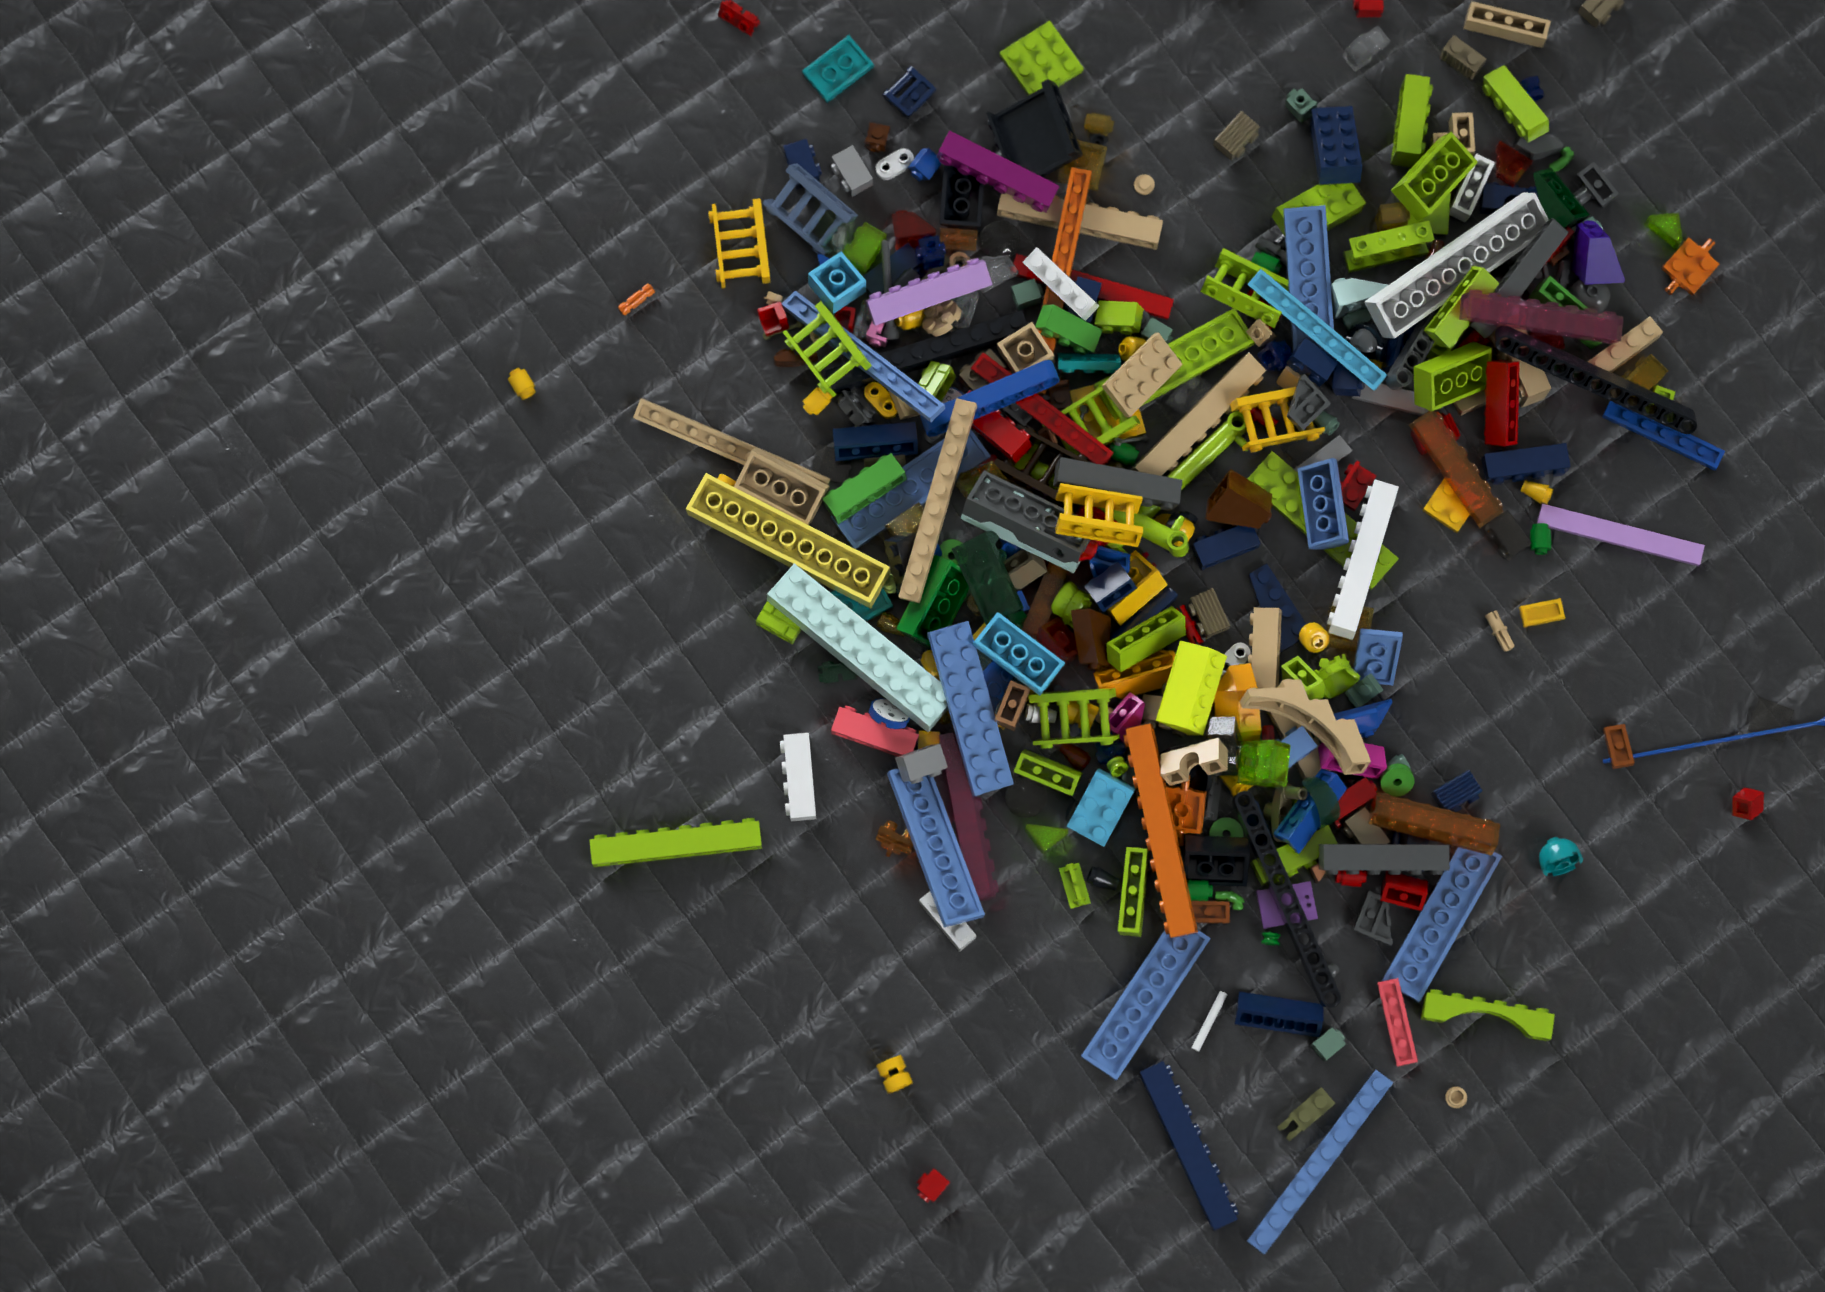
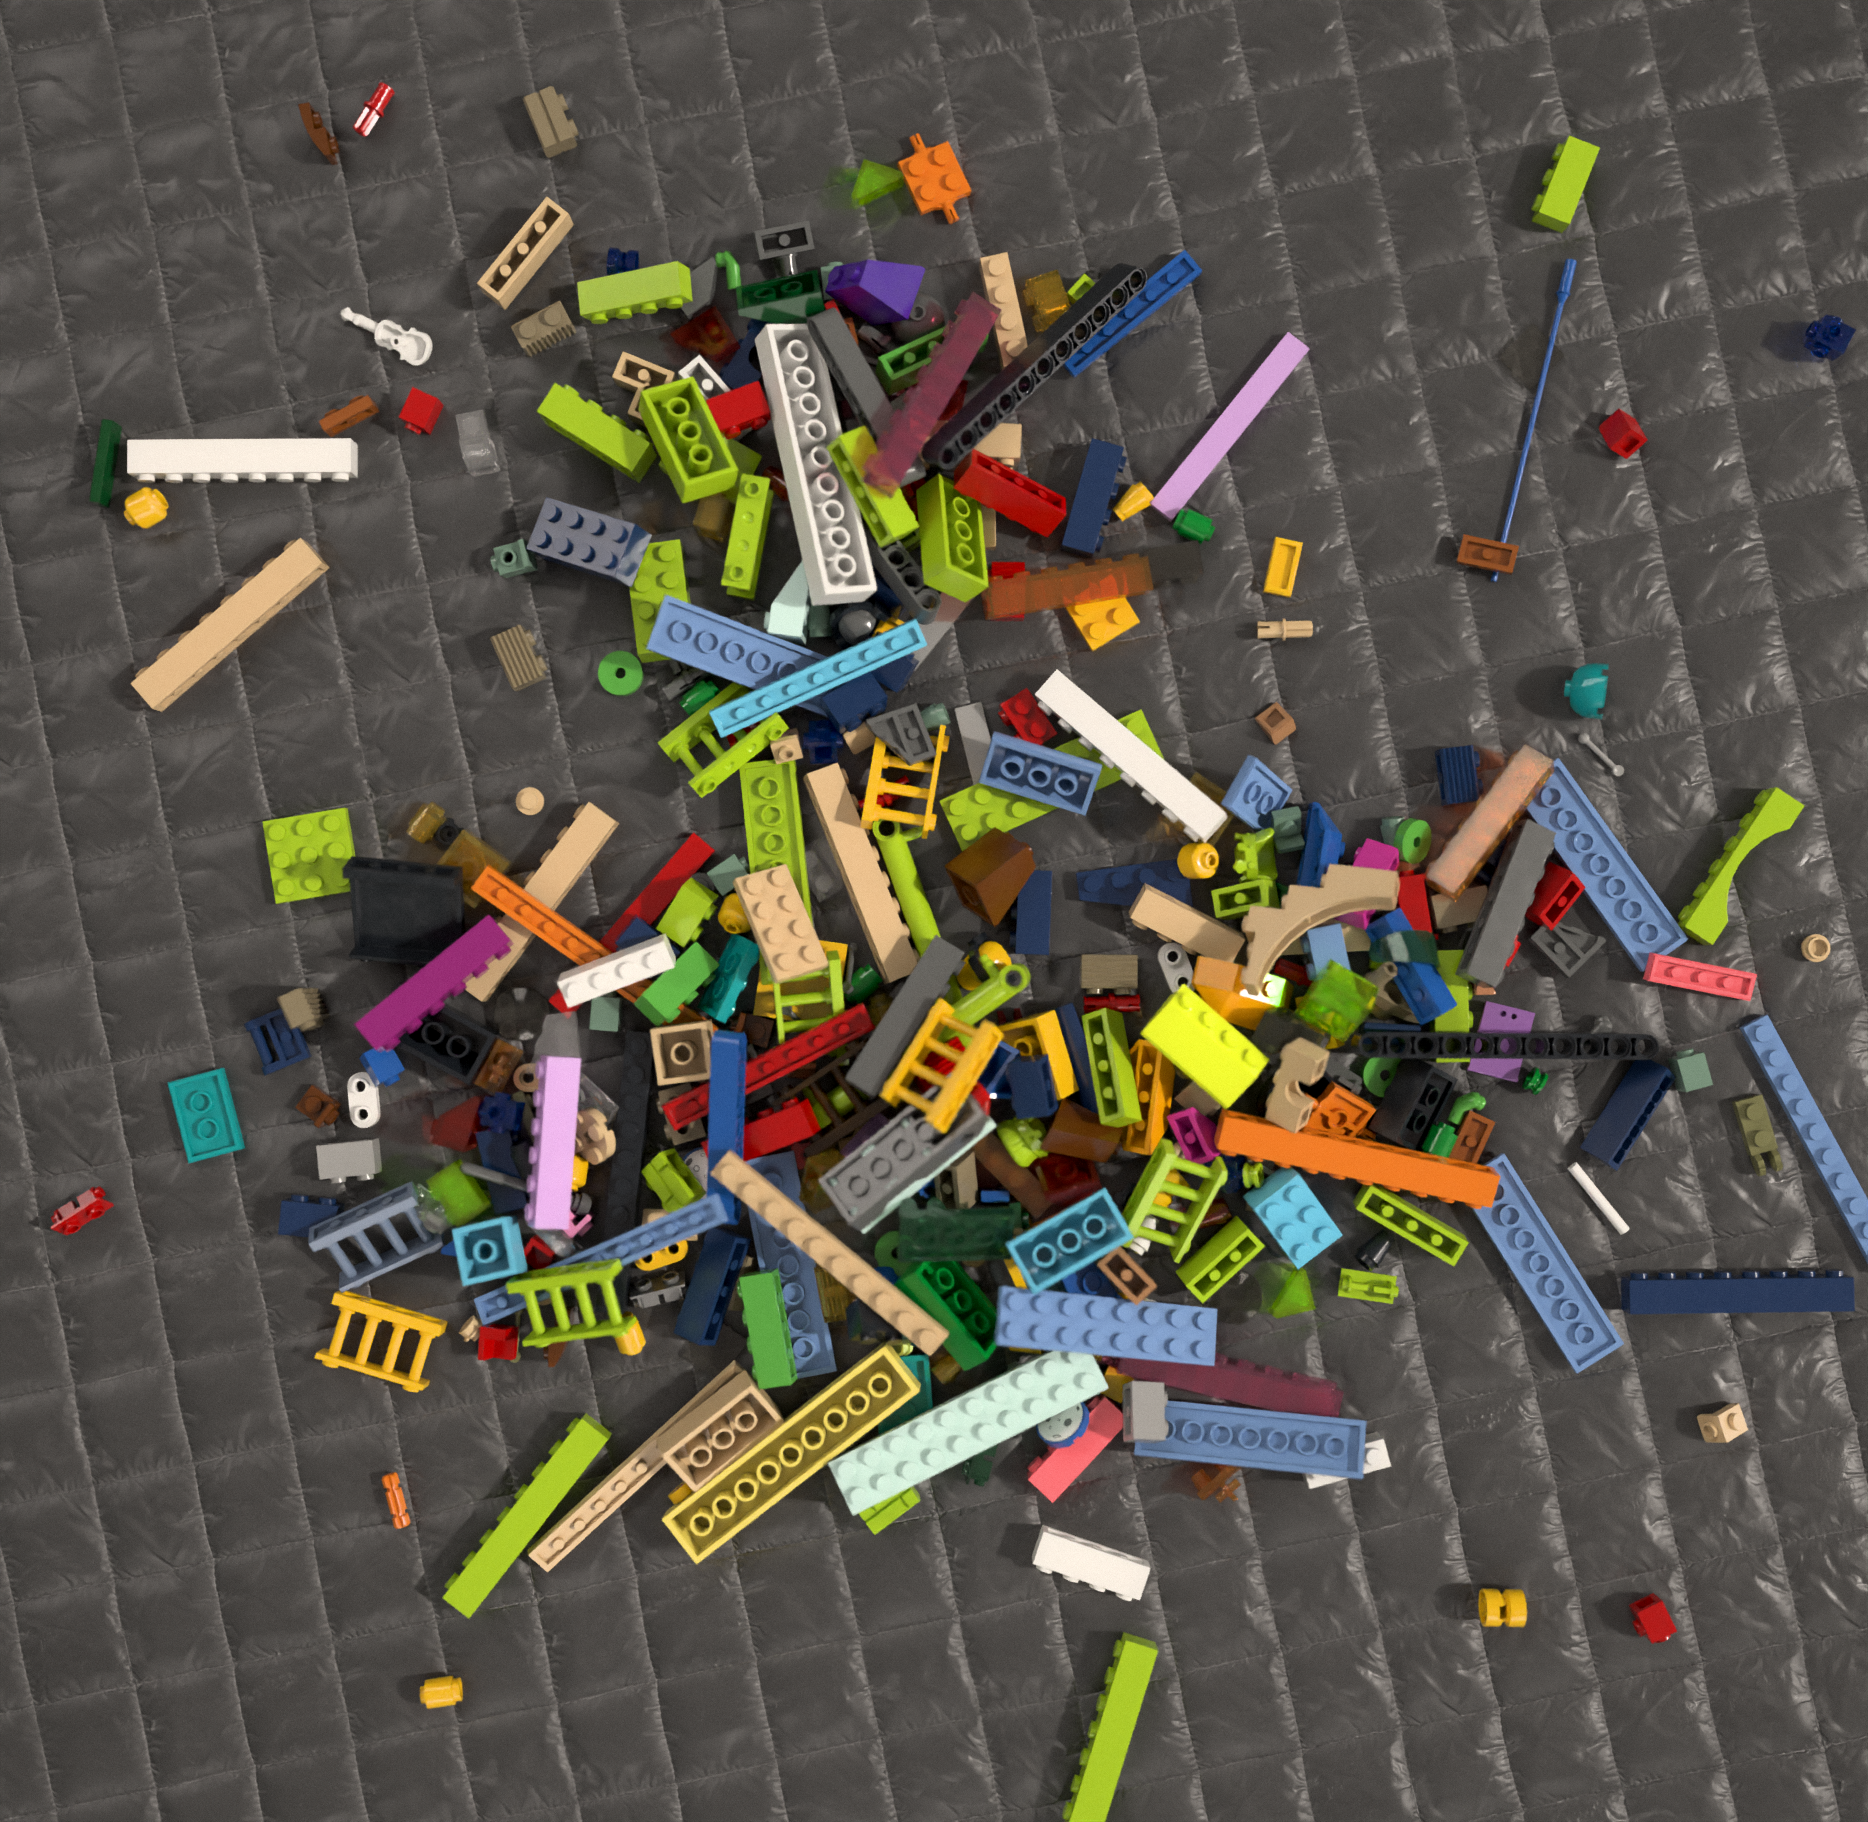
camera: 70 degrees left, 10 degrees up
(665, 387) = (527, 1515): none -> lime brick
(939, 98) = (303, 1009): none -> dark tan brick
(1092, 1177) = (1722, 1424): none -> tan bracket
(1257, 215) = (632, 678): none -> bright green piece
(1433, 655) = (1276, 723): none -> medium nougat slope
(1469, 201) = (740, 410): none -> red brick
(1513, 904) = (1617, 770): none -> light grey hinge

